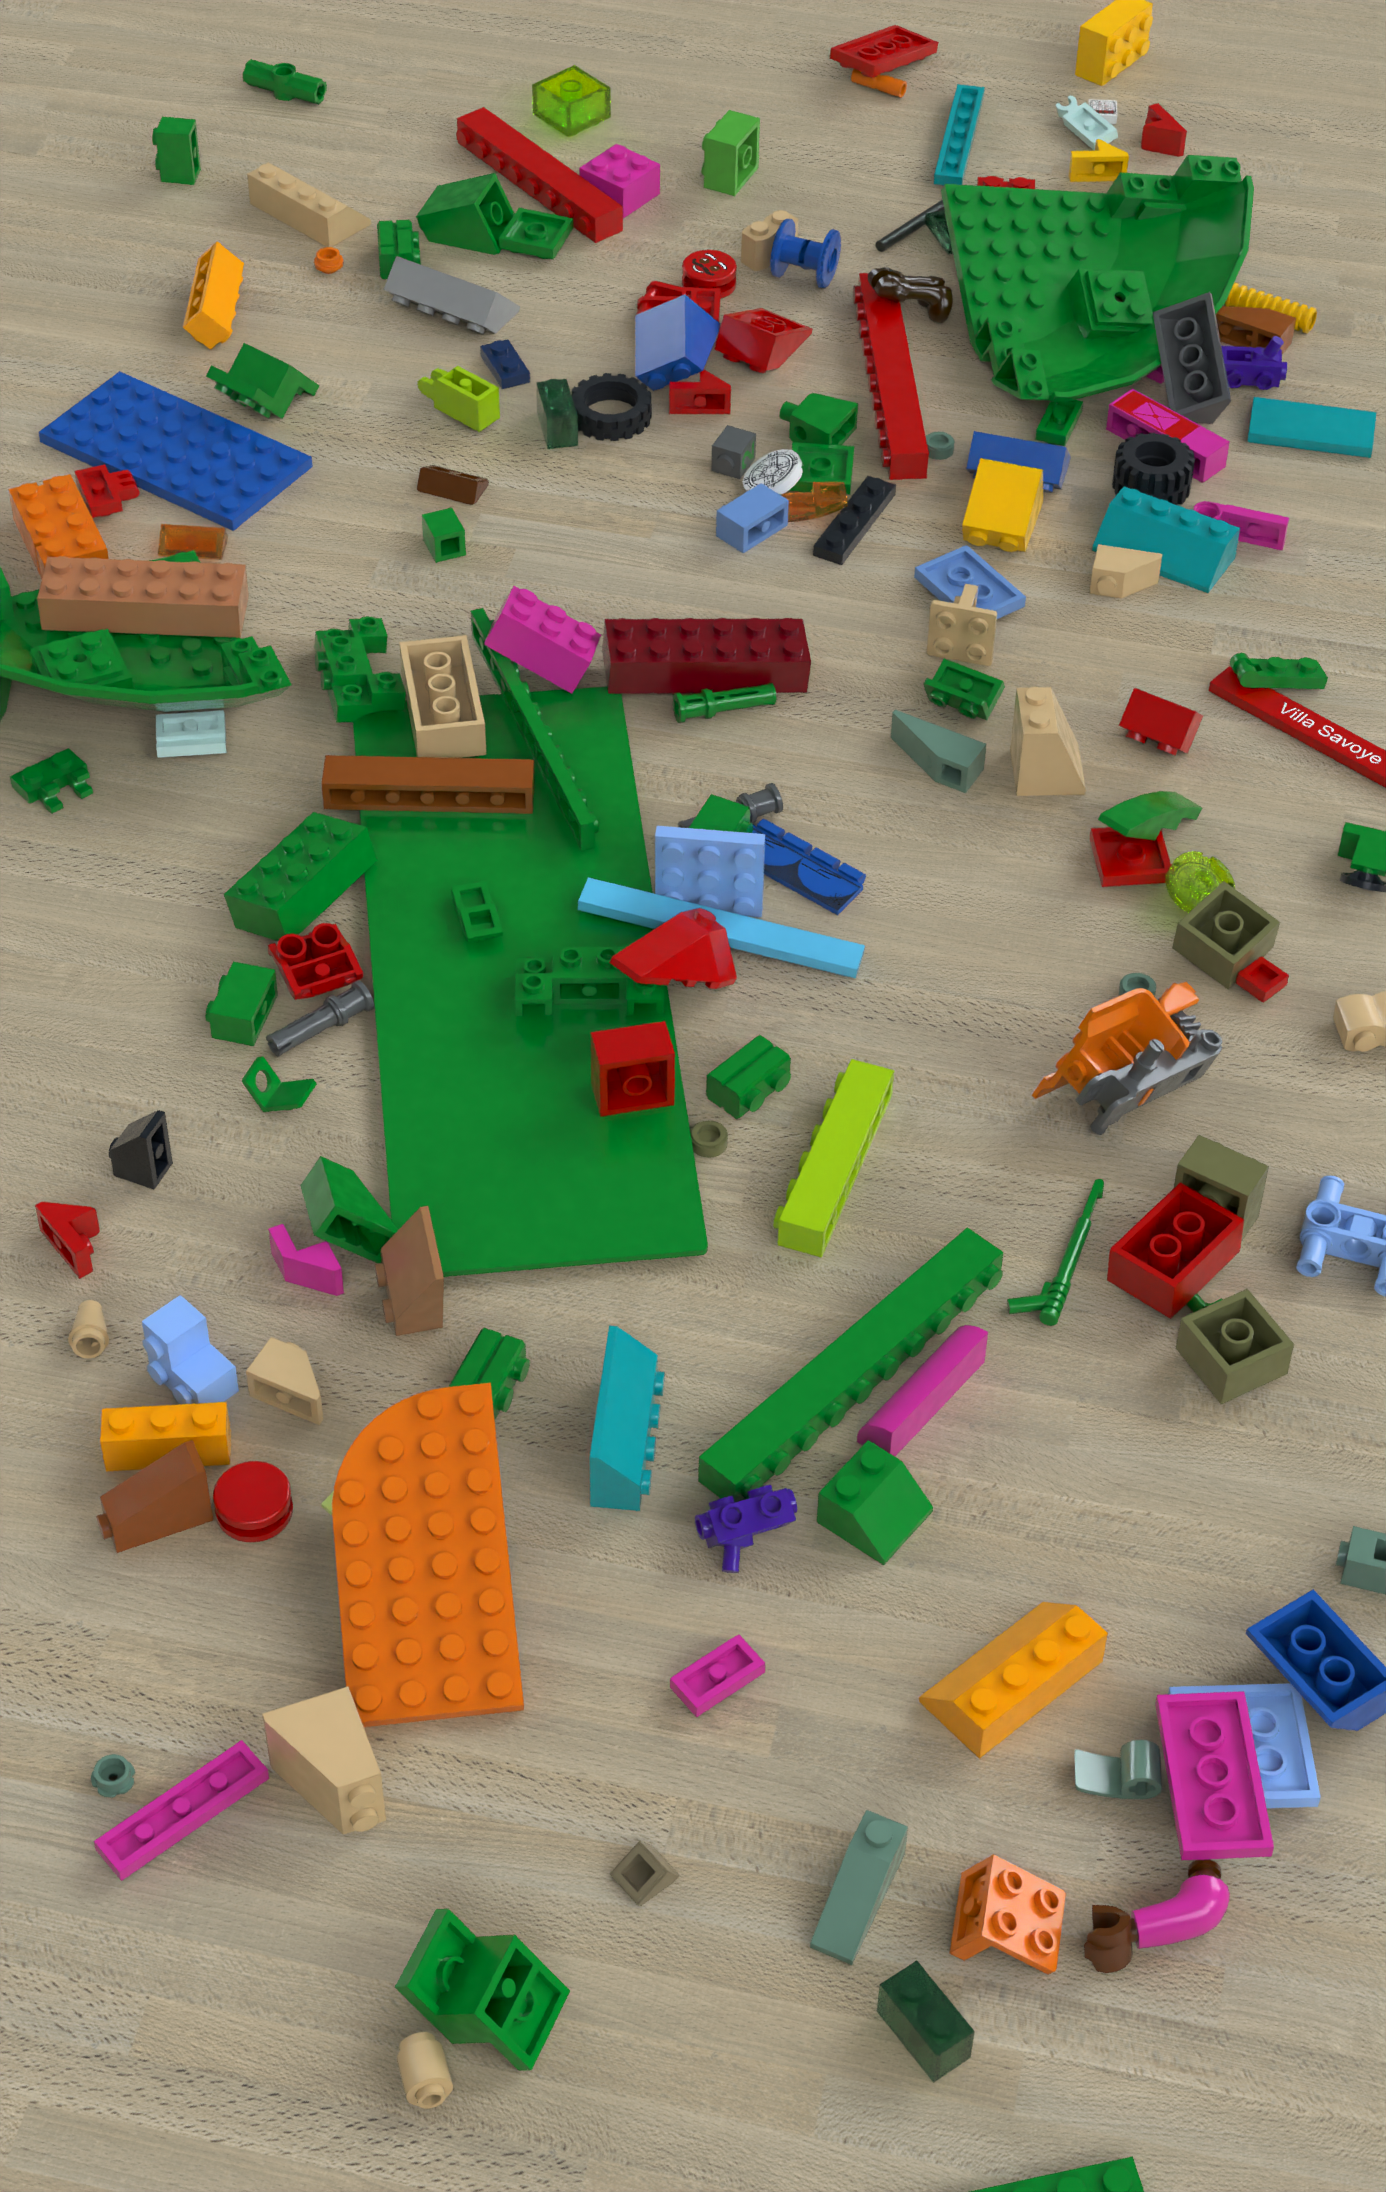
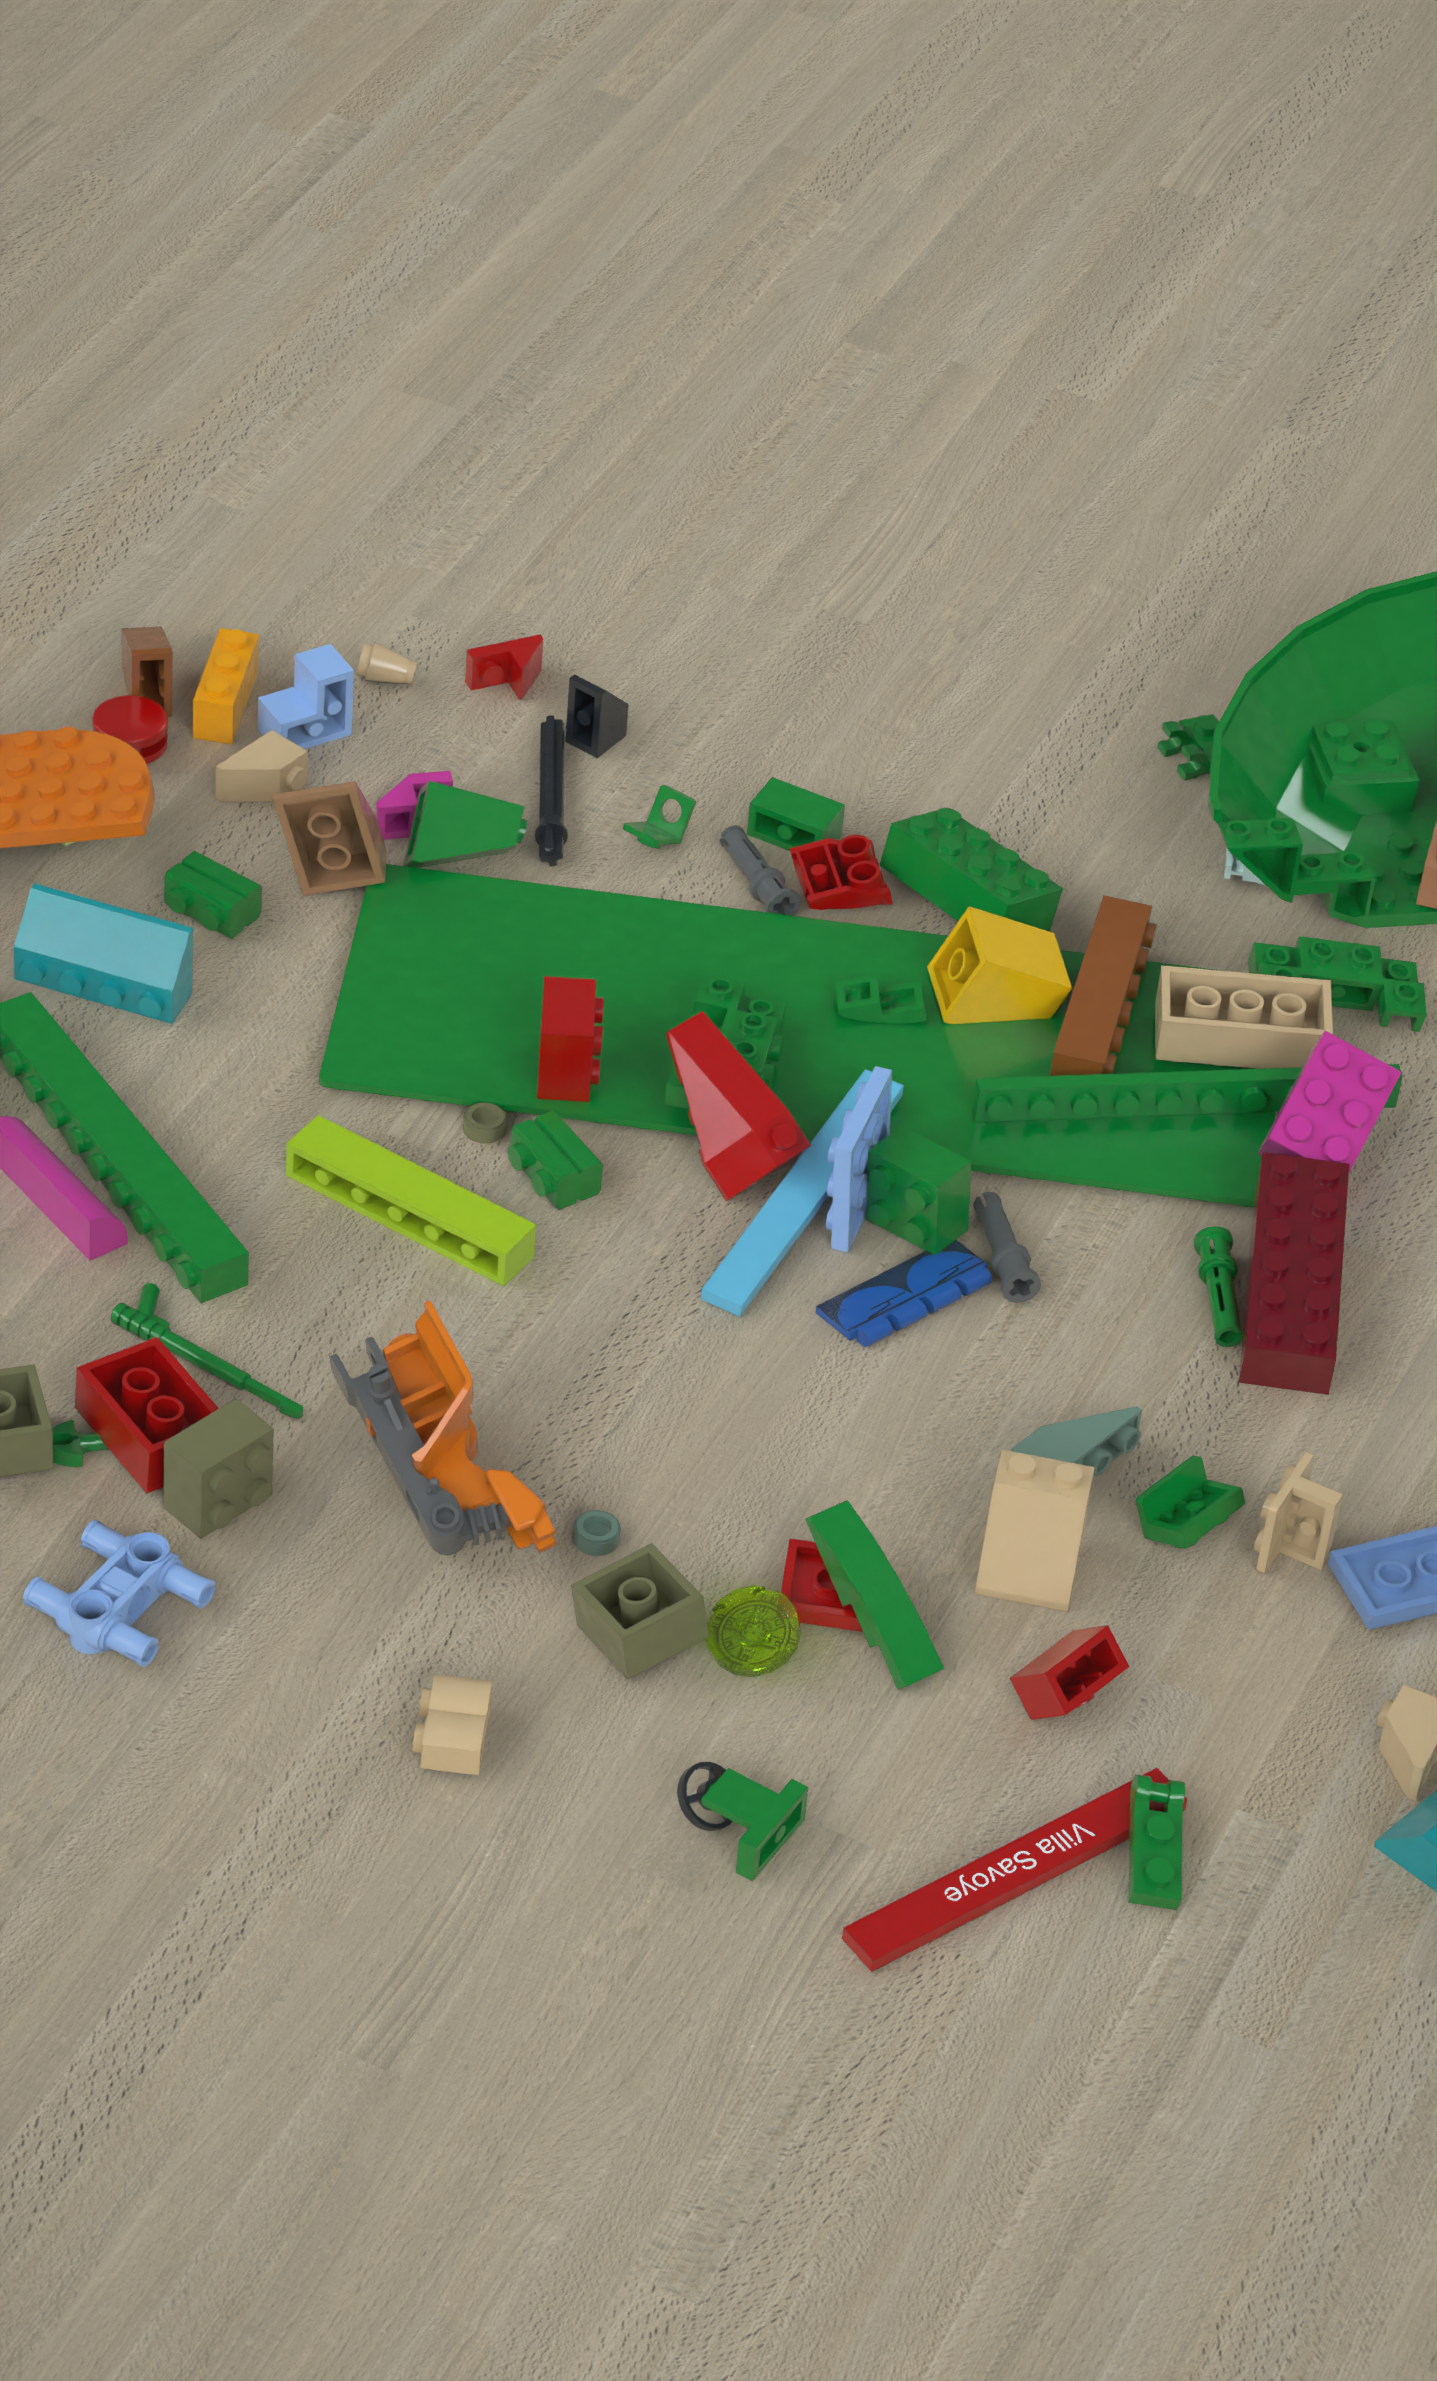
camera: 100 degrees right, 5 degrees down
(239, 1175) = (551, 832): none -> black axle
(431, 842) = (998, 971): none -> yellow slope
(1262, 979) = (568, 1643): red plate -> none

